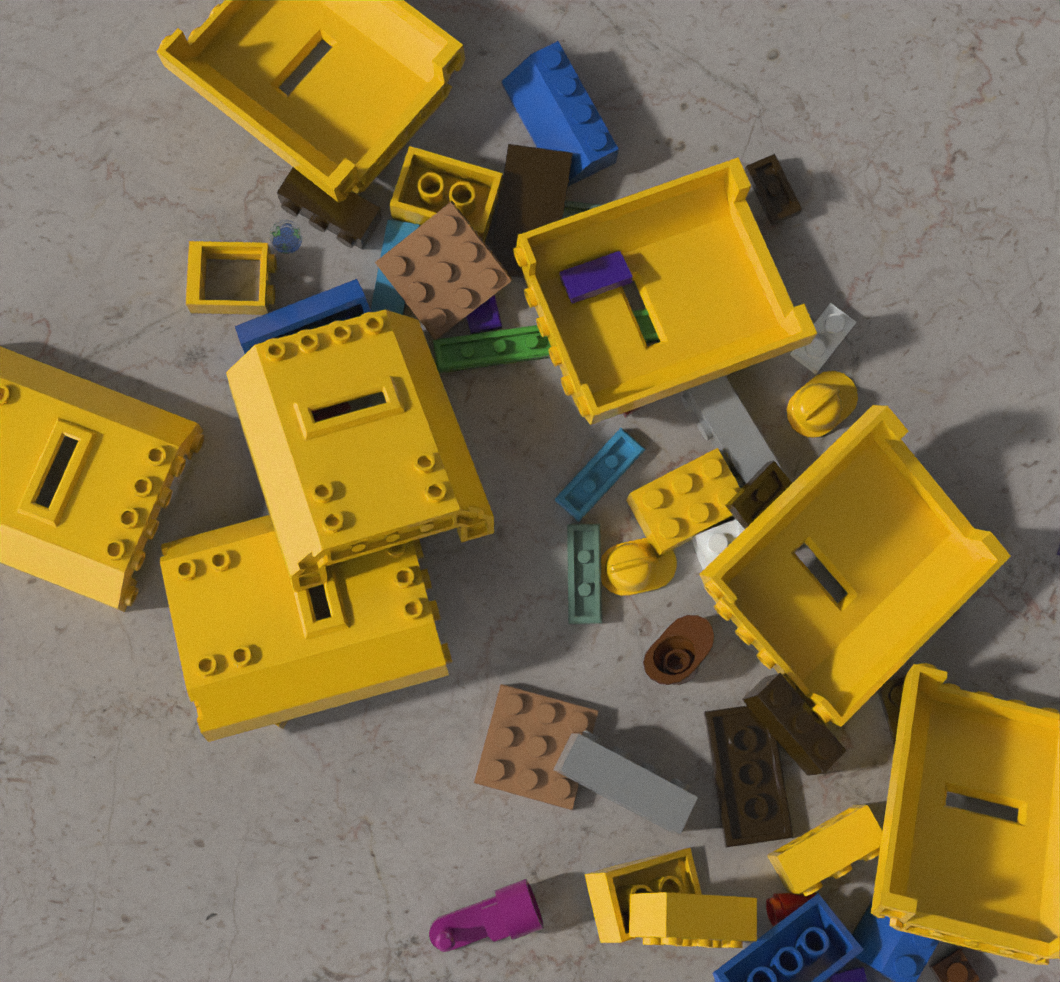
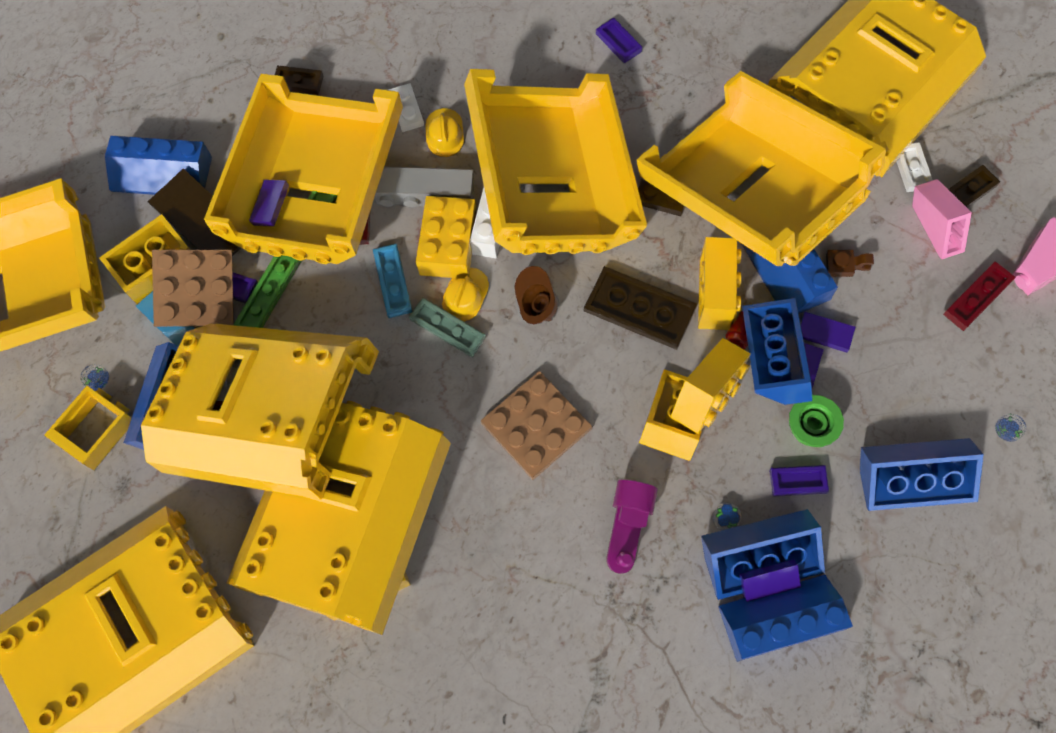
camera: 45 degrees left, 10 degrees down
(350, 219) = (98, 338): dark brown brick -> none
(625, 782) = (596, 378): light grey brick -> none
(758, 493) = (471, 187): dark brown plate -> none
(794, 725) = (627, 257): dark brown brick -> none

